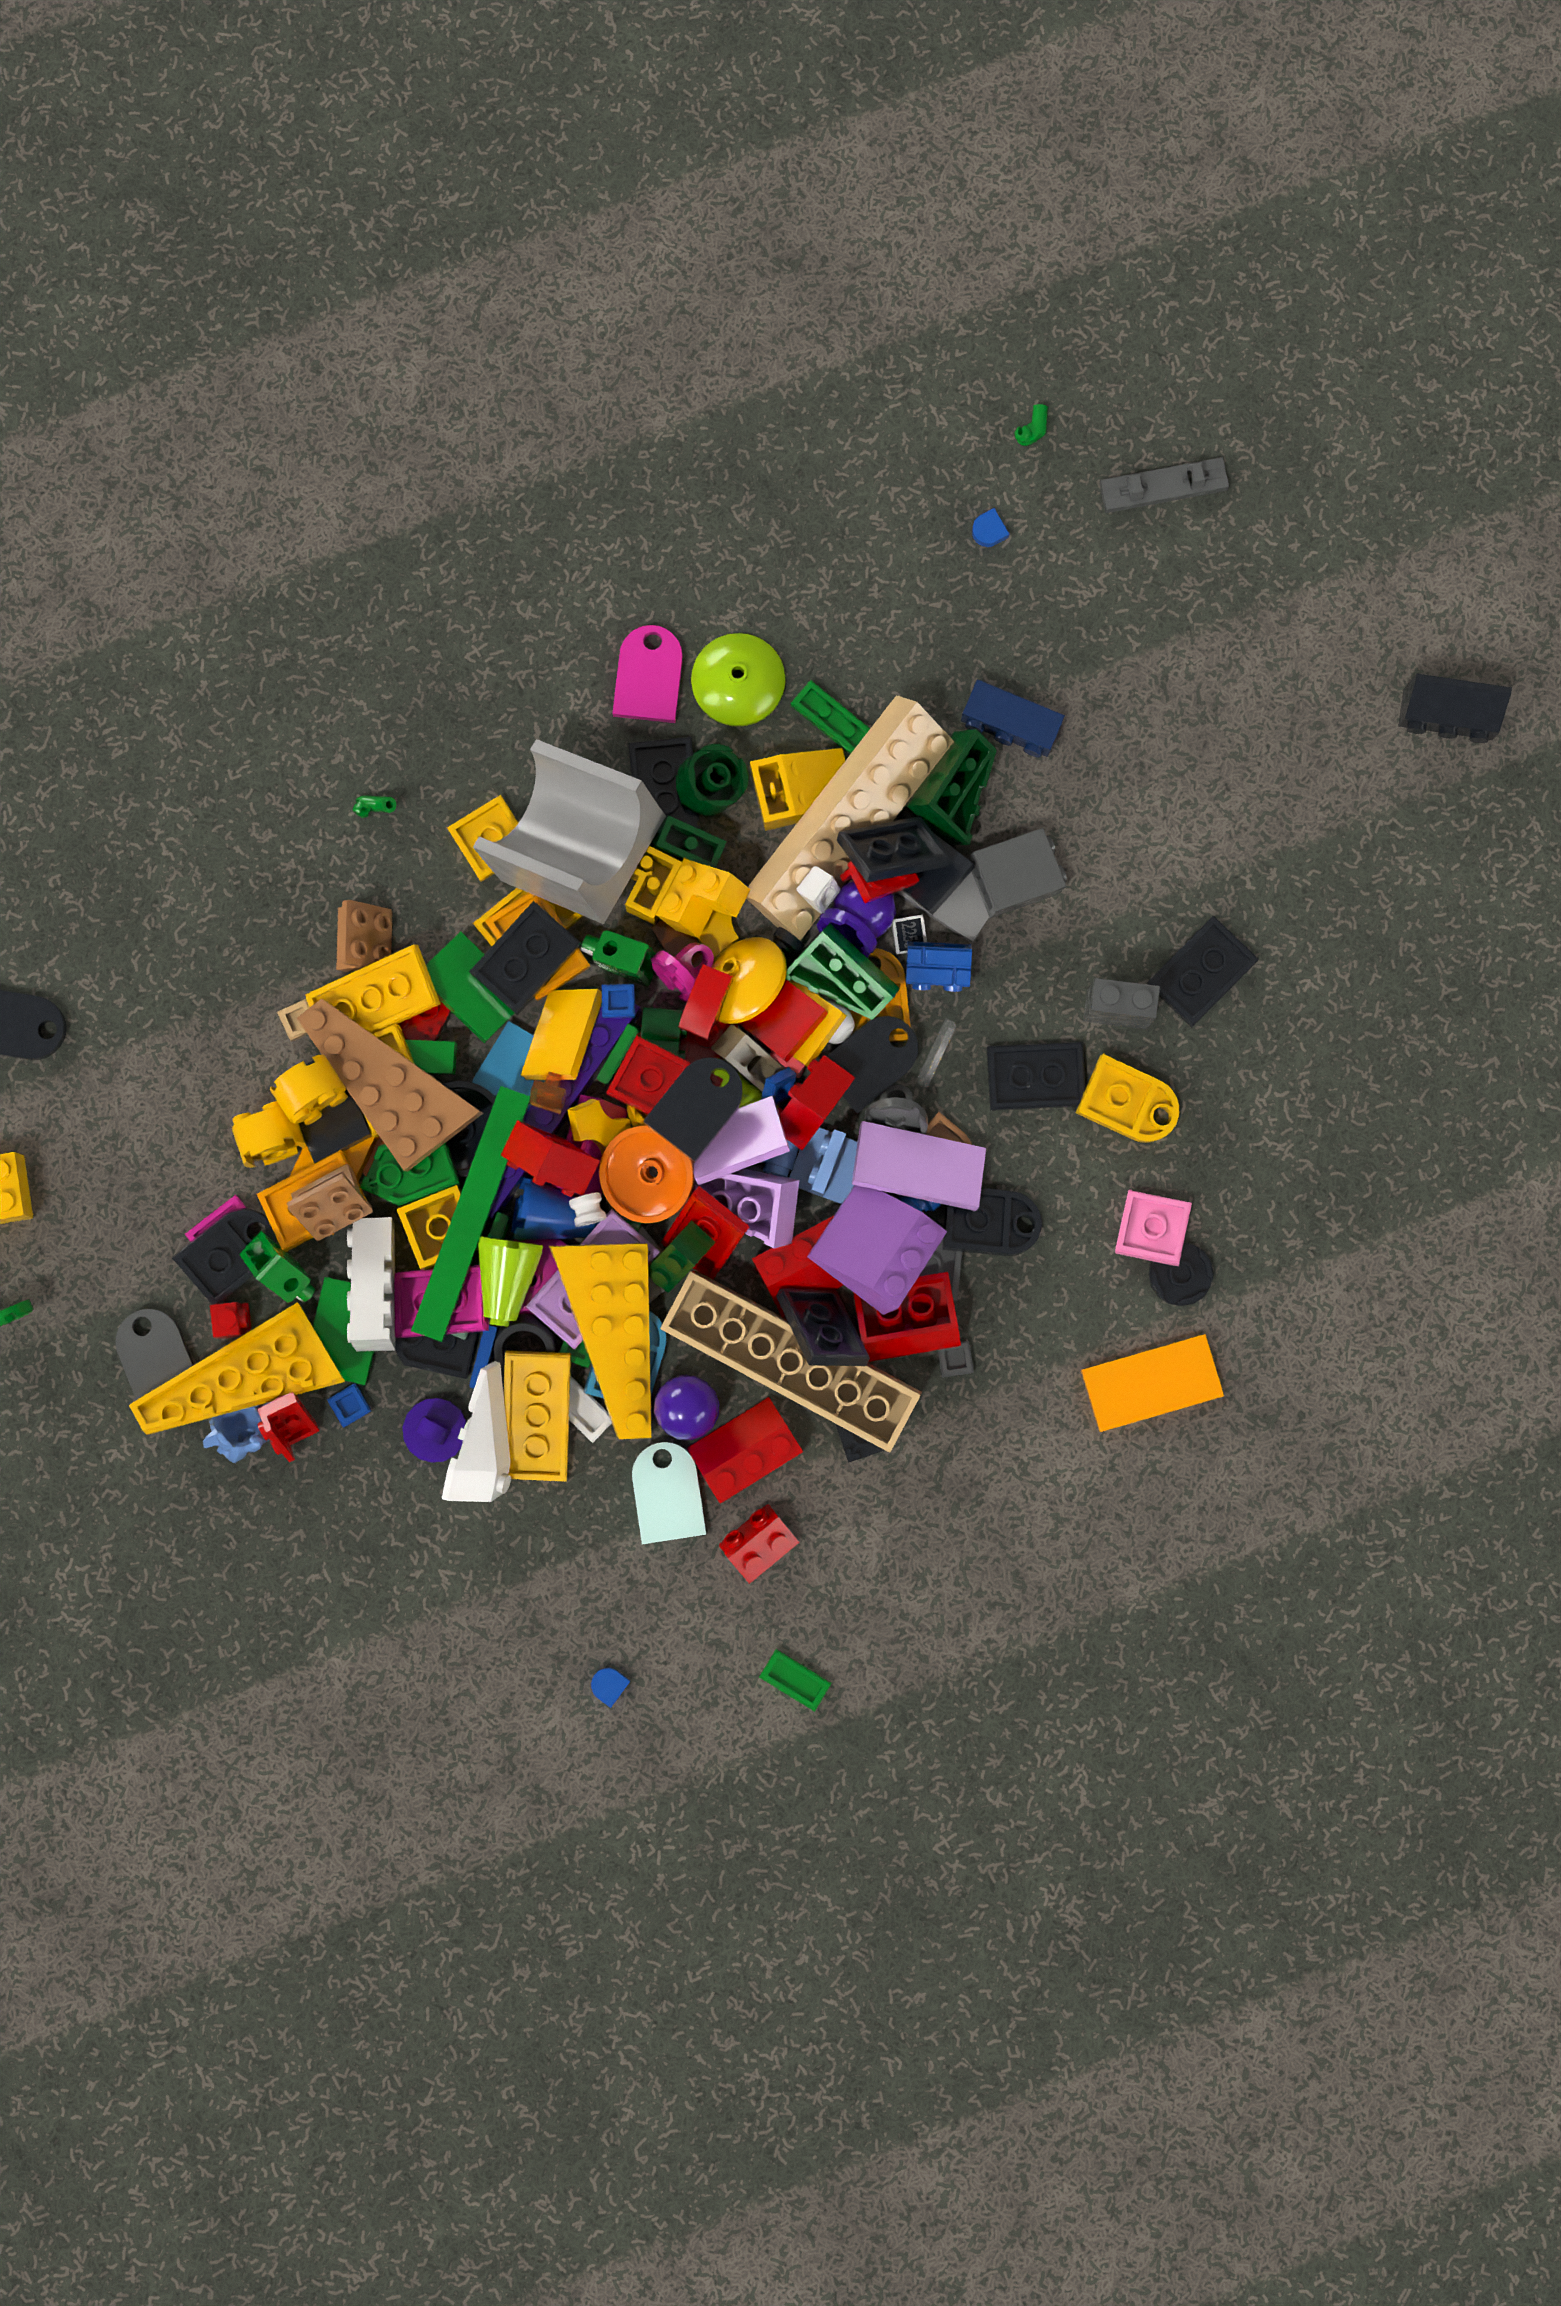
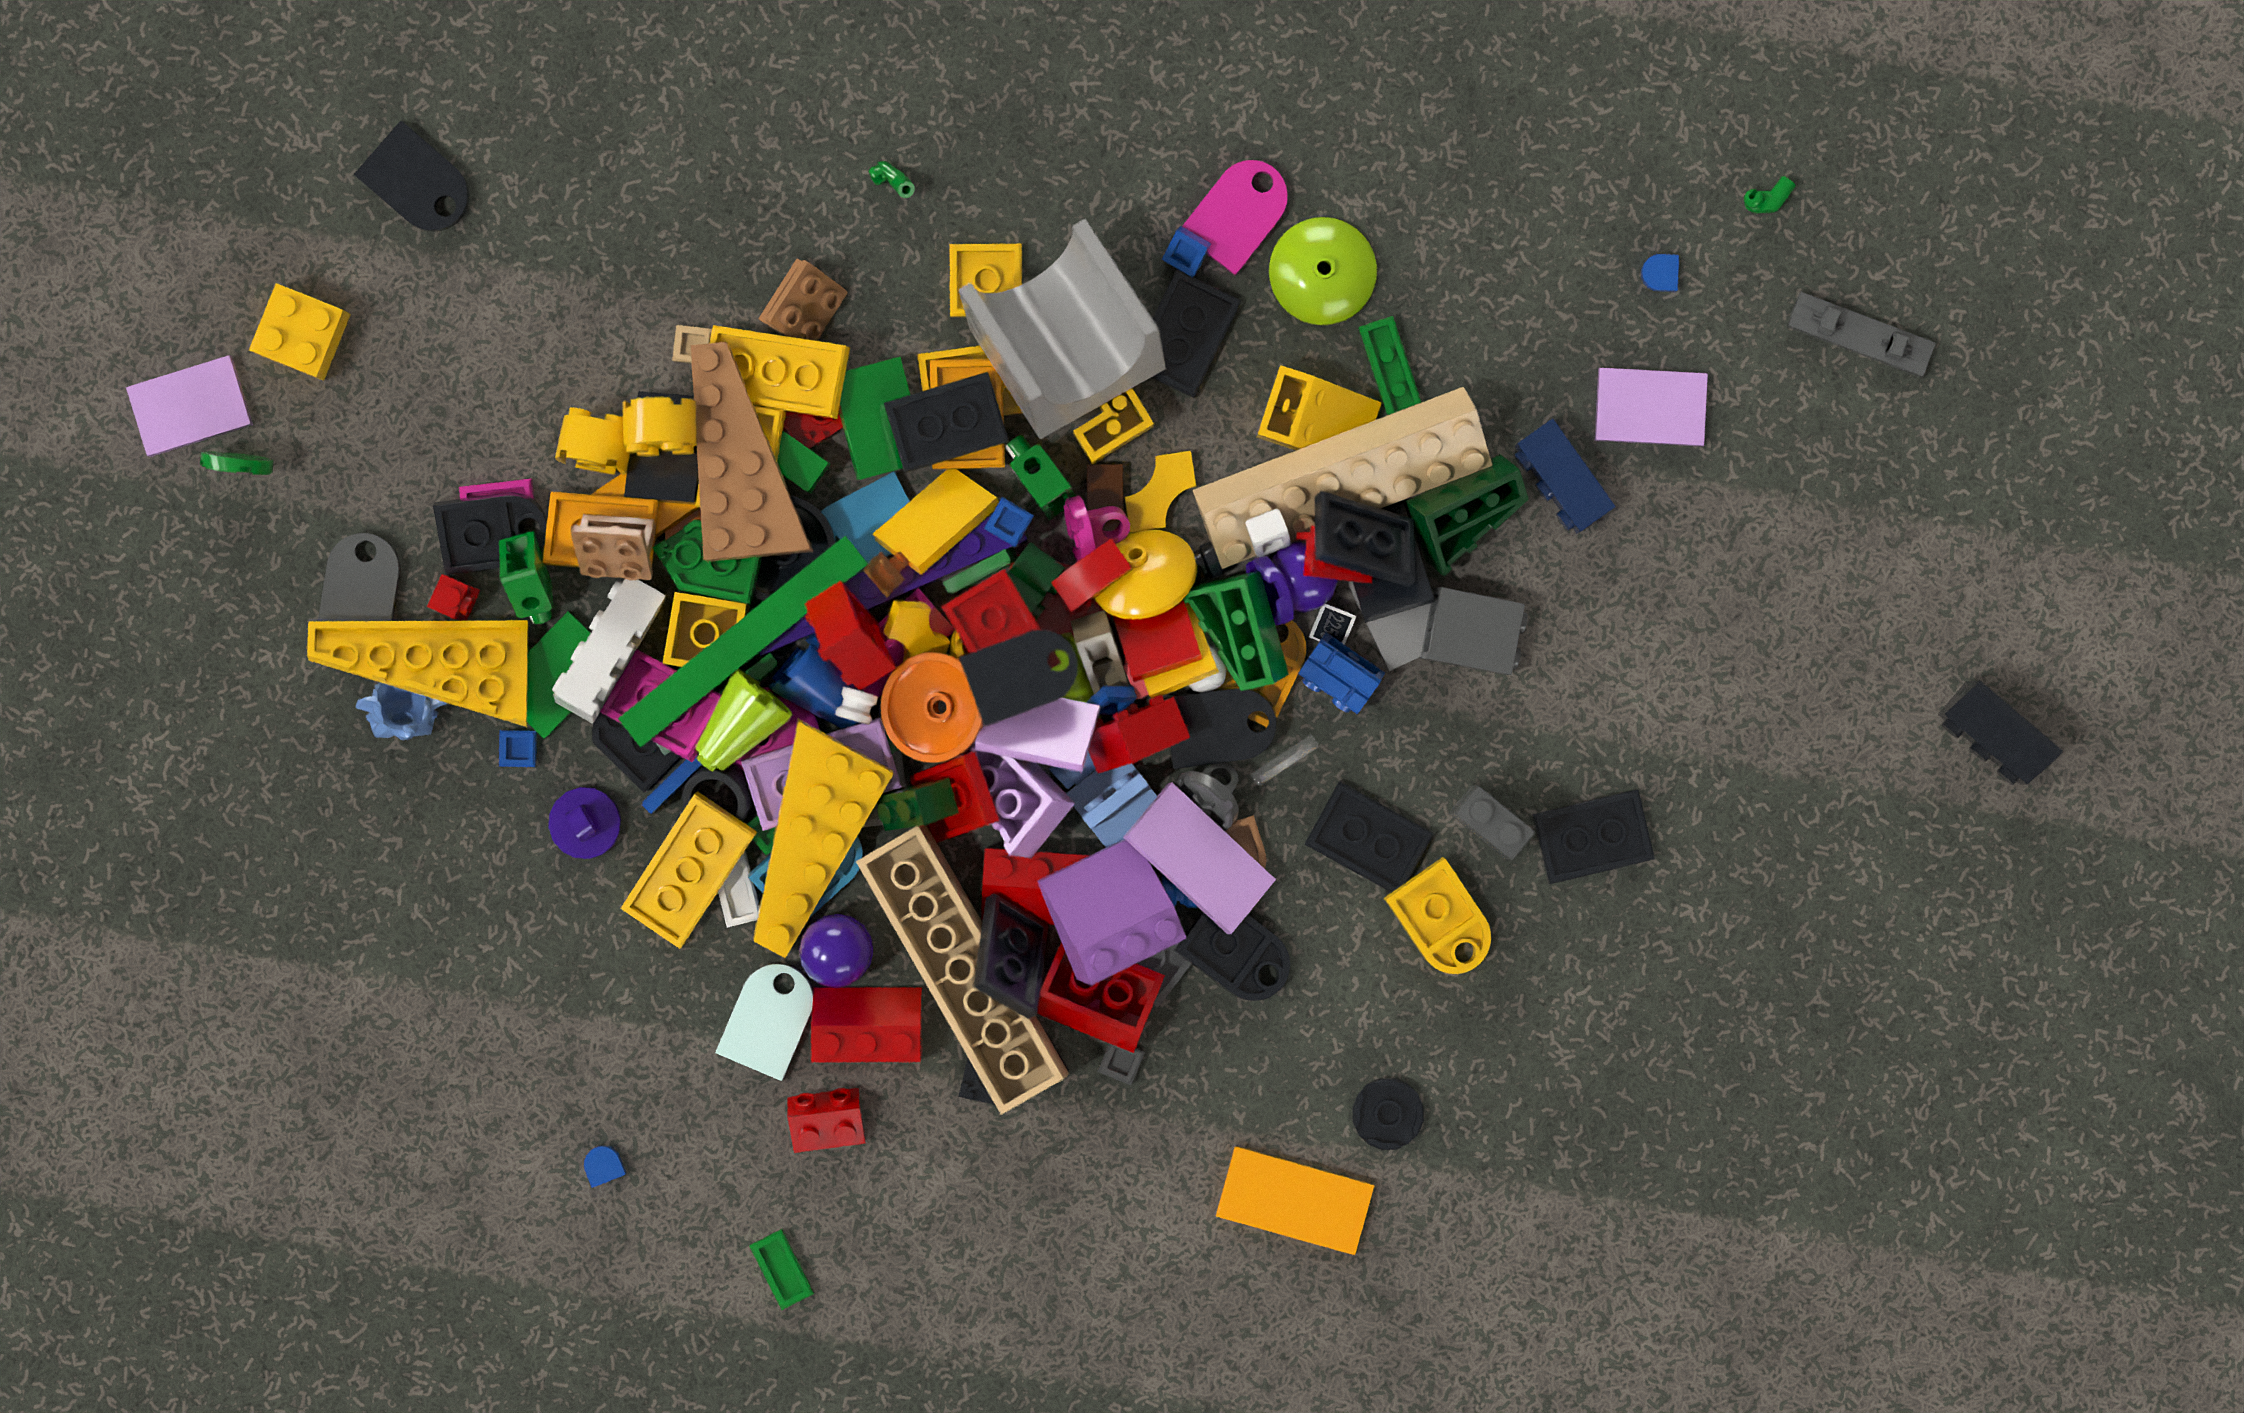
camera: 25 degrees right, 5 degrees up
(286, 1423) = (446, 730): red bracket -> none
(484, 1458) = (616, 880): white wedge -> none
(627, 725) = (1186, 251): none -> blue tile
(688, 842) = (1172, 409): dark green brick -> none
(697, 893) = (1149, 463): yellow brick -> none
(711, 780) = (1246, 344): dark green brick -> none
(1043, 630) = (1651, 407): none -> lavender tile
(1153, 1228) = (1388, 1054): bright pink tile -> none

